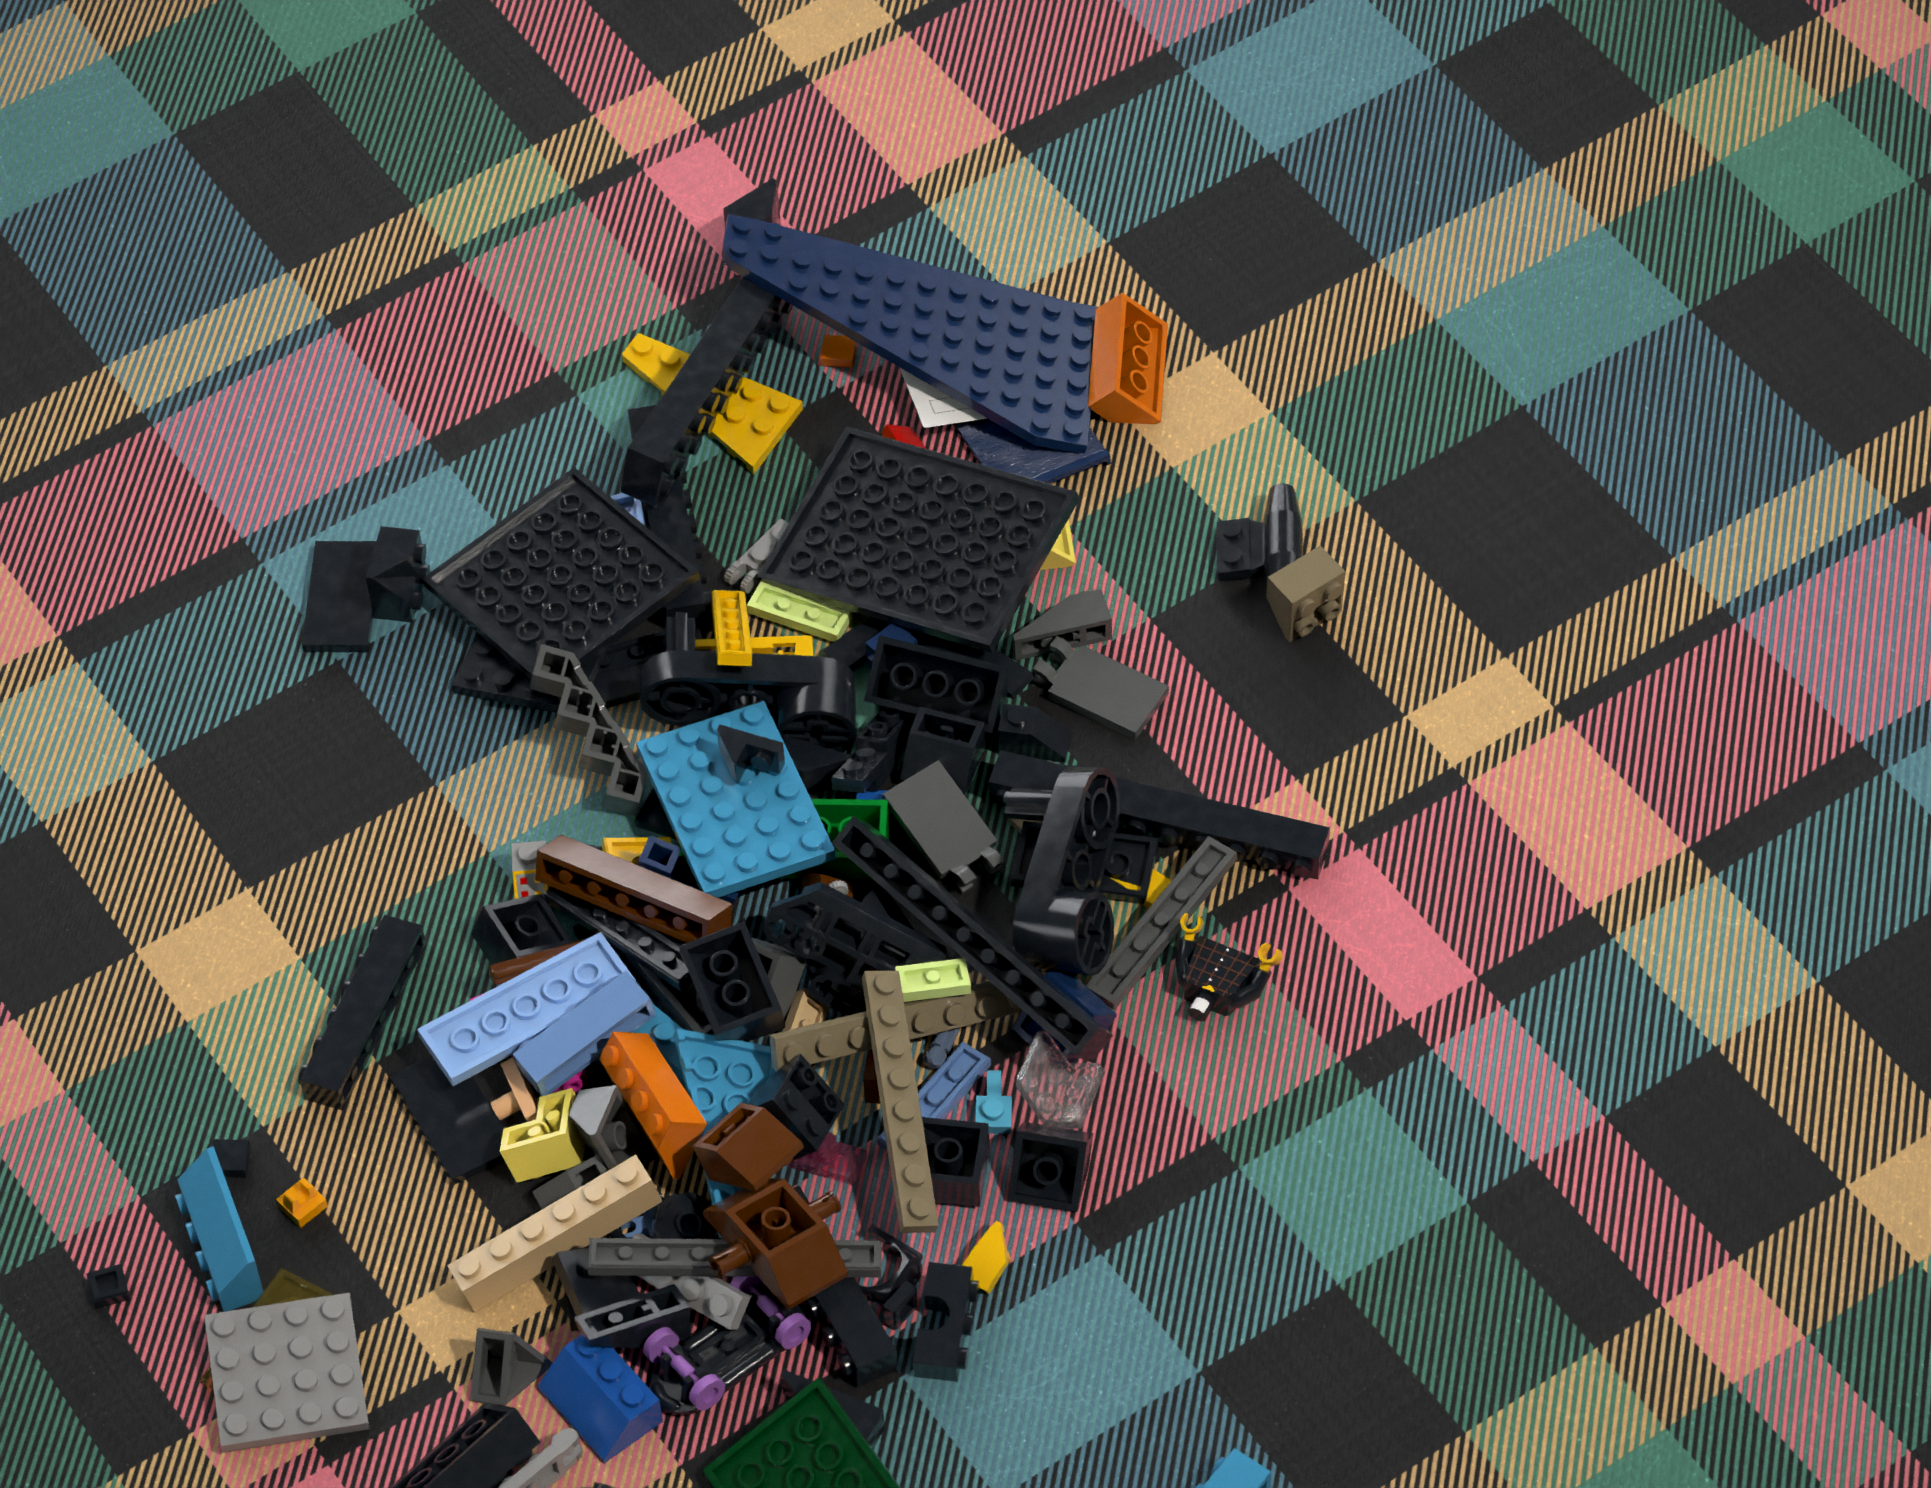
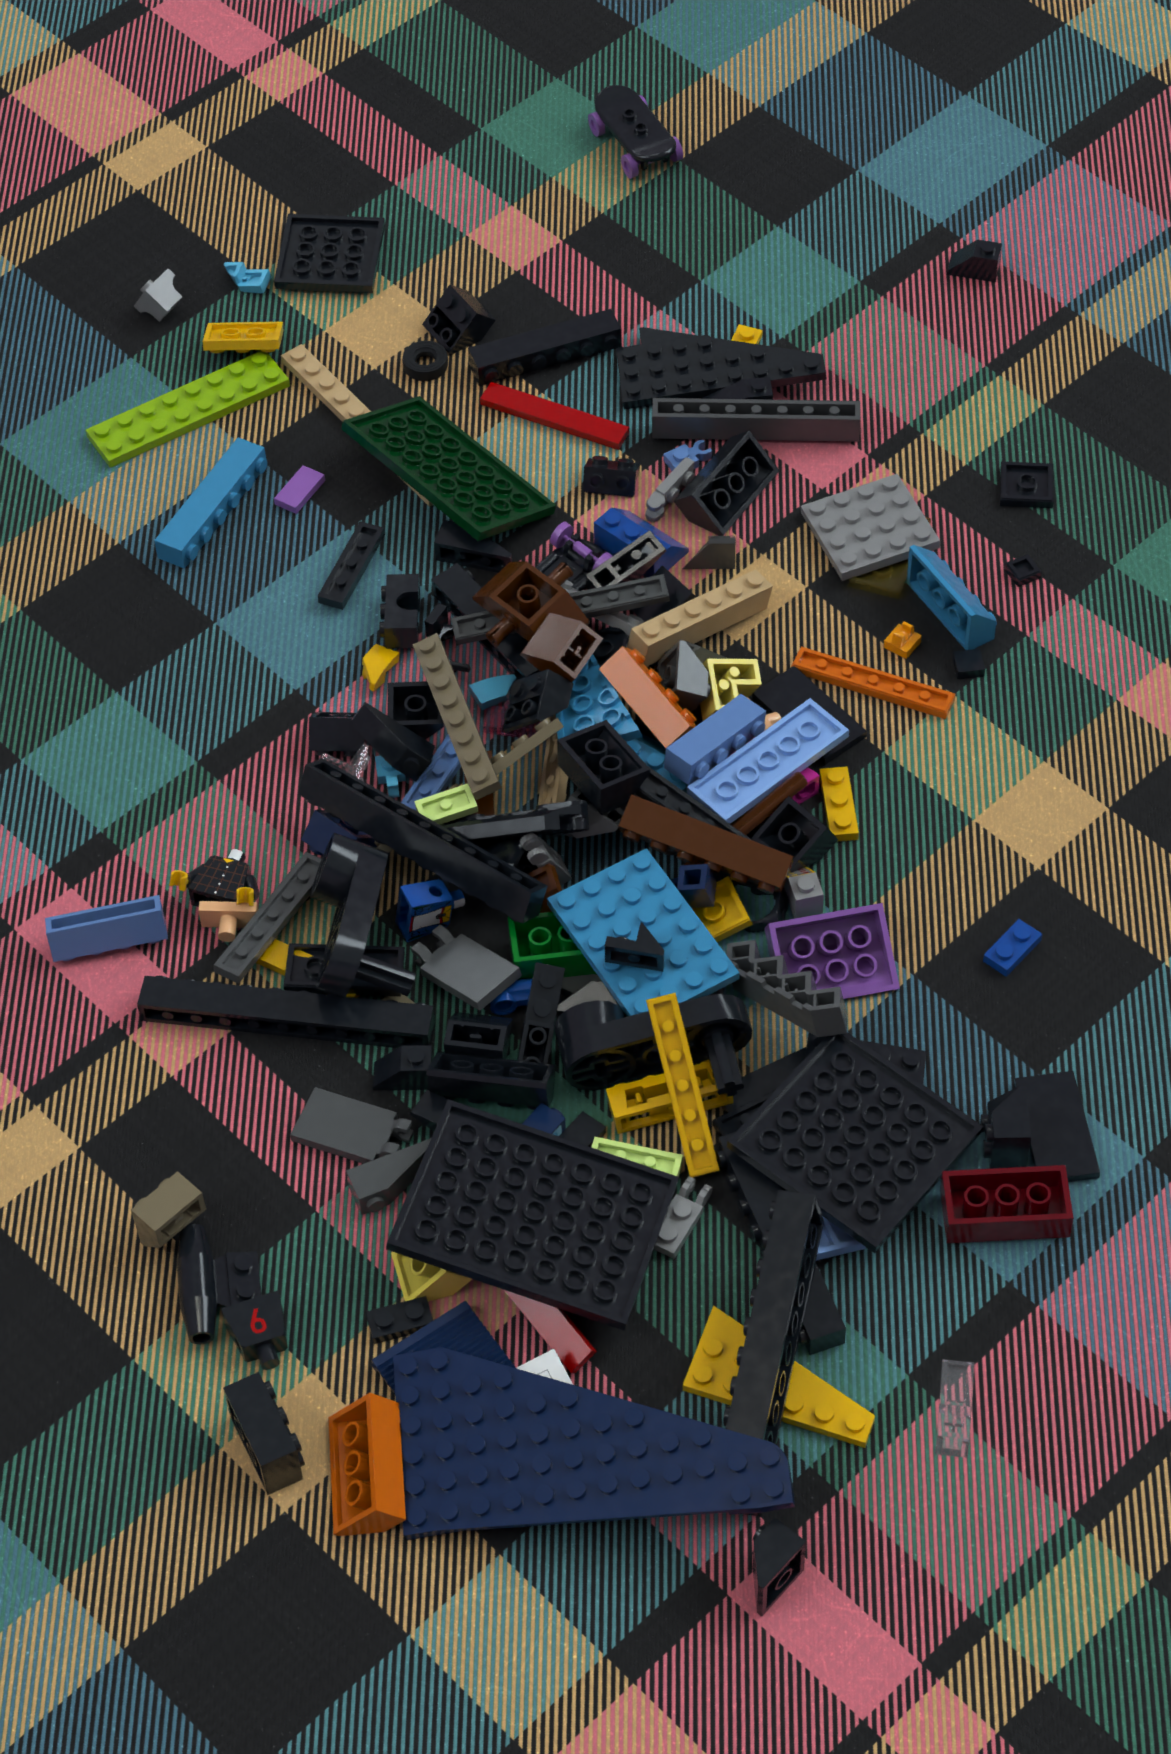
camera: 170 degrees right, 0 degrees up
(50, 1421) = (1026, 484): none -> black tile
(313, 793) = (1012, 947): none -> blue plate
(359, 1150) = (874, 682): none -> orange tile
(362, 1012) = (903, 772): black brick -> none
(442, 505) = (1006, 1204): none -> dark red brick
(455, 978) = (839, 803): none -> yellow plate
(520, 802) = (839, 948): none -> medium lavender slope
(542, 348) = (954, 1408): none -> clear slope
(851, 1188) = (492, 690): none -> medium azure slope
(973, 1100) = (393, 741): none -> black slope
(984, 897) = (425, 907): none -> blue torso
(1001, 1418) = (351, 565): none -> black plate
(1092, 495) = (398, 1319): none -> black plate
(1218, 931) = (226, 916): none -> light nougat tile
(1223, 495) = (258, 1328): none -> black torso
(1225, 386) = (265, 1432): none -> black brick
(1362, 930) = (106, 928): none -> medium blue brick

